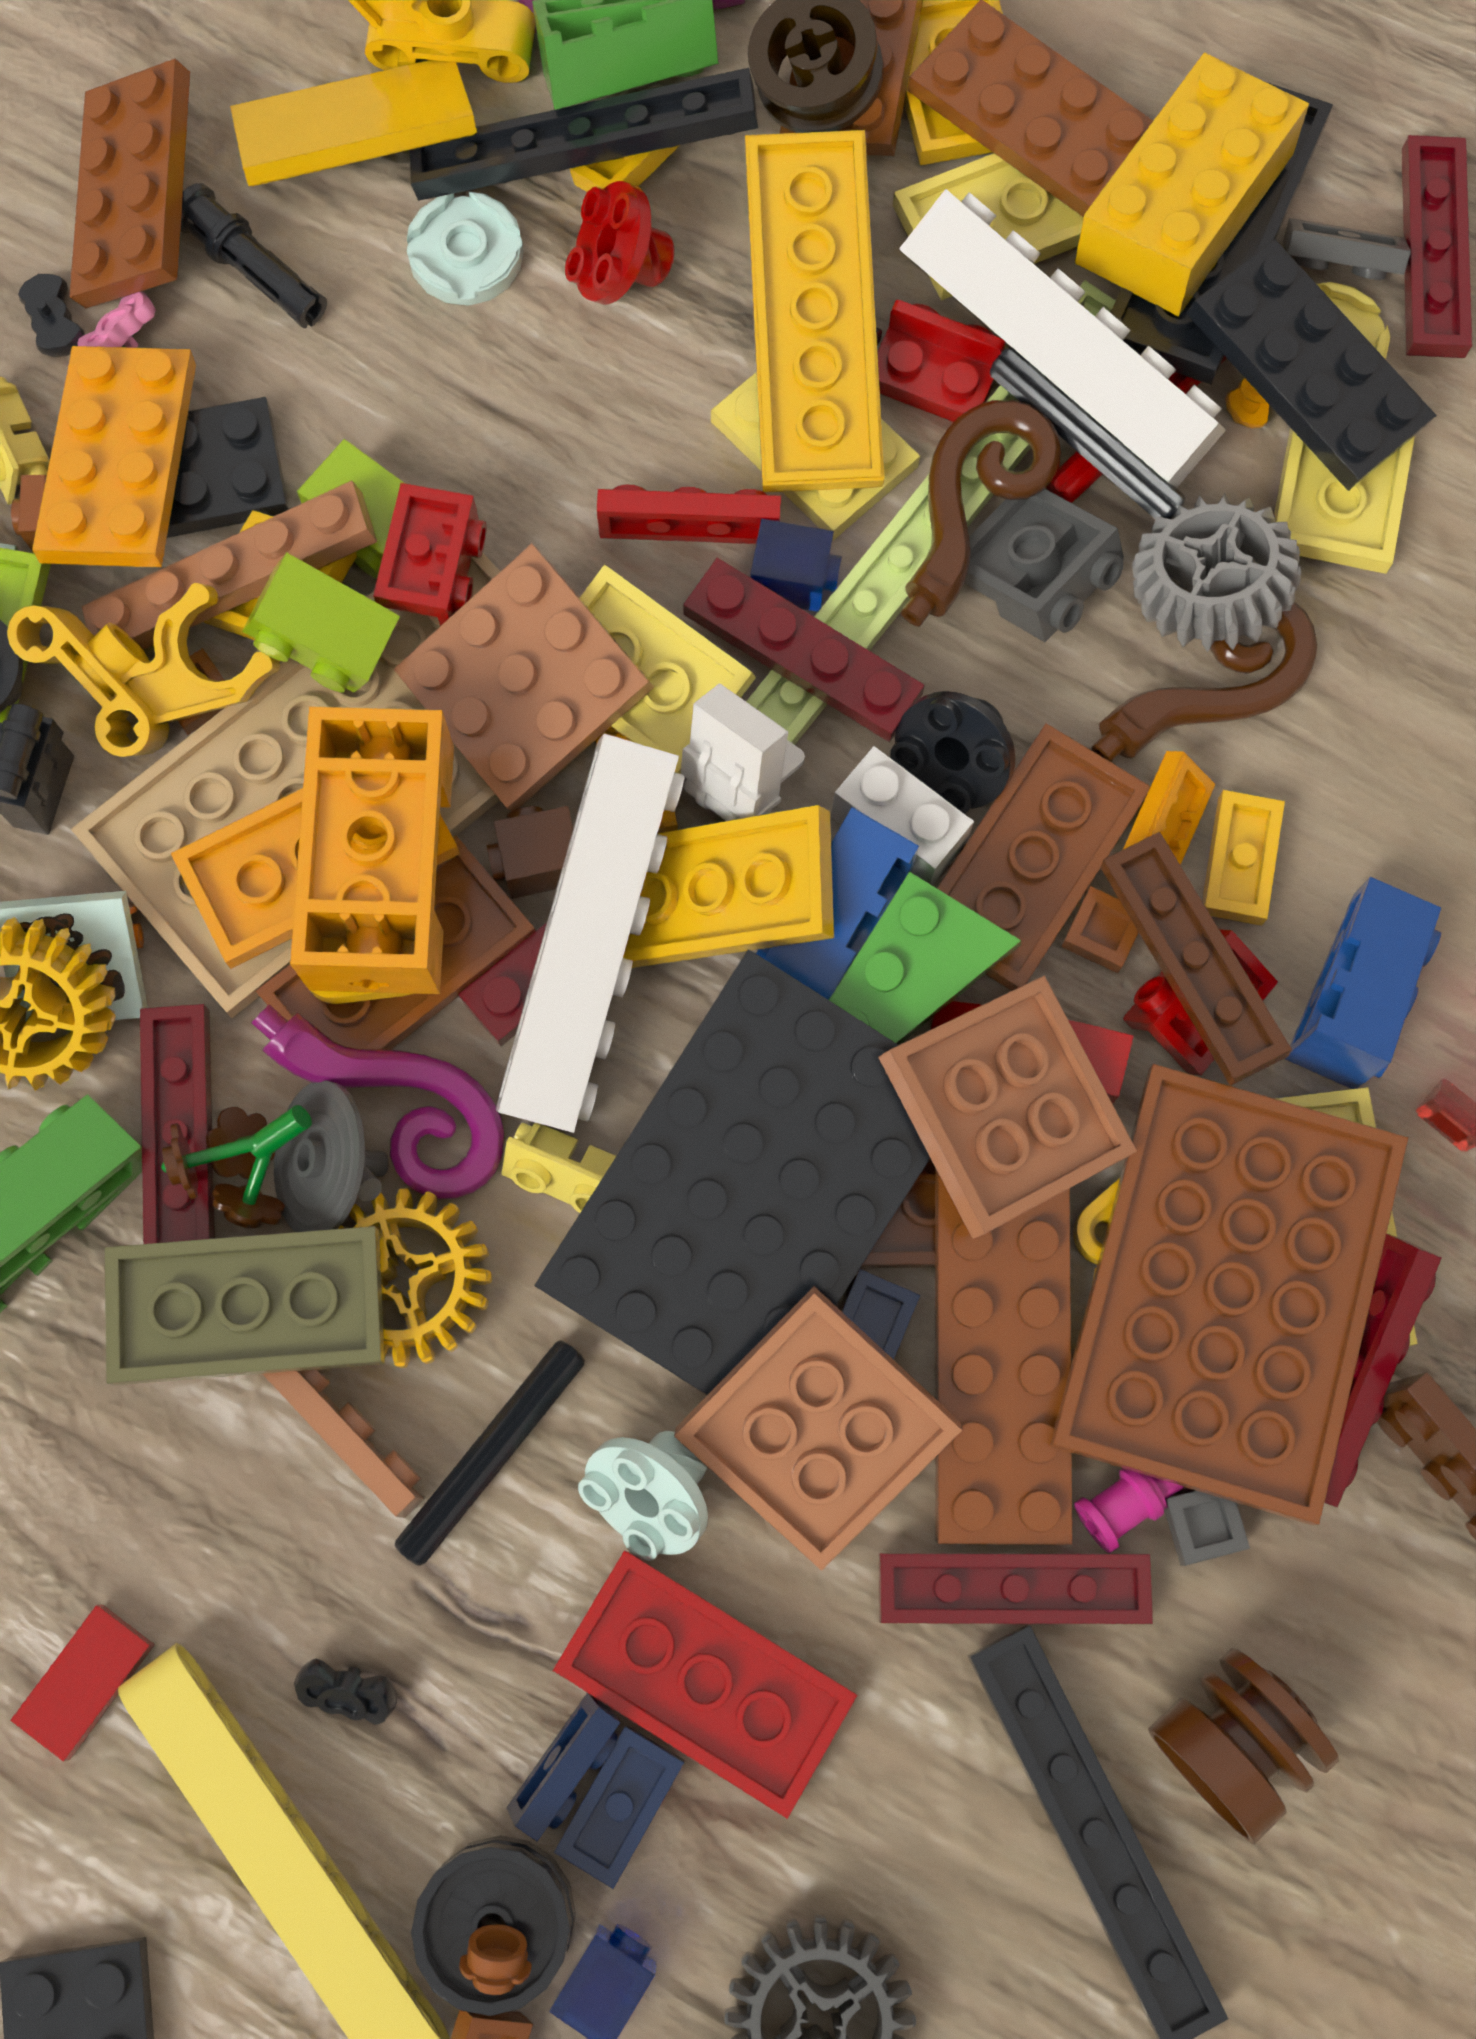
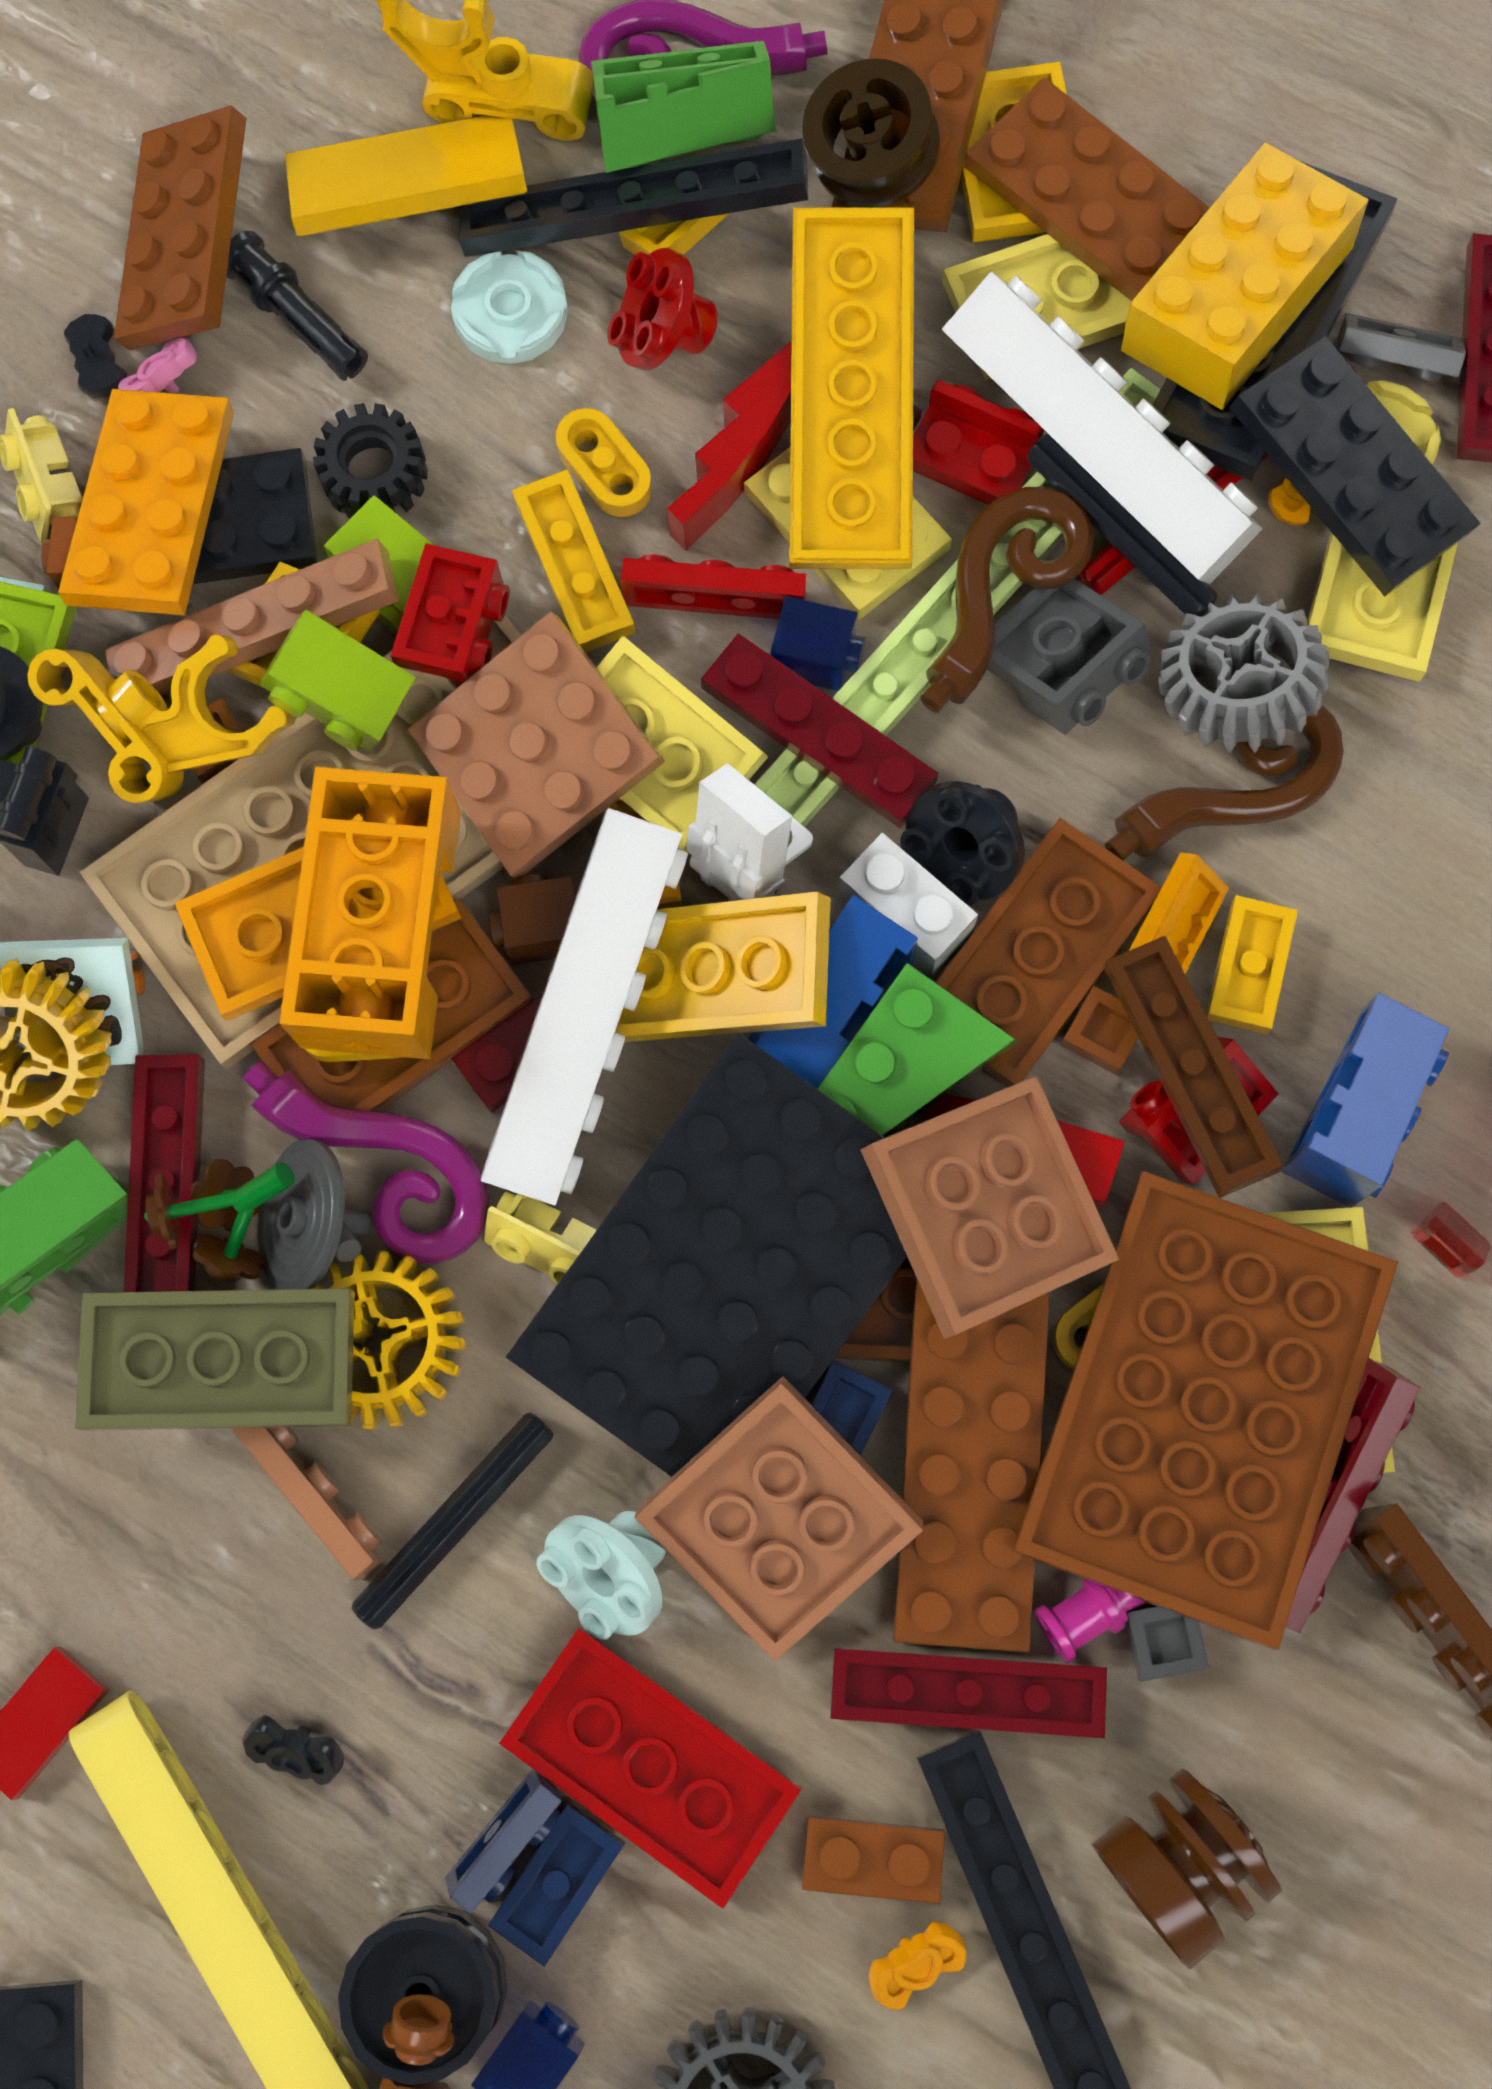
camera: 10 degrees right, 0 degrees up
(333, 378) = (367, 432): none -> black tyre
(546, 494) = (573, 561): none -> yellow plate
(574, 400) = (605, 467): none -> yellow plate
(715, 356) = (753, 425): none -> red slope
(932, 1759) = (873, 1859): none -> dark orange plate
(982, 1860) = (916, 1964): none -> light orange piece

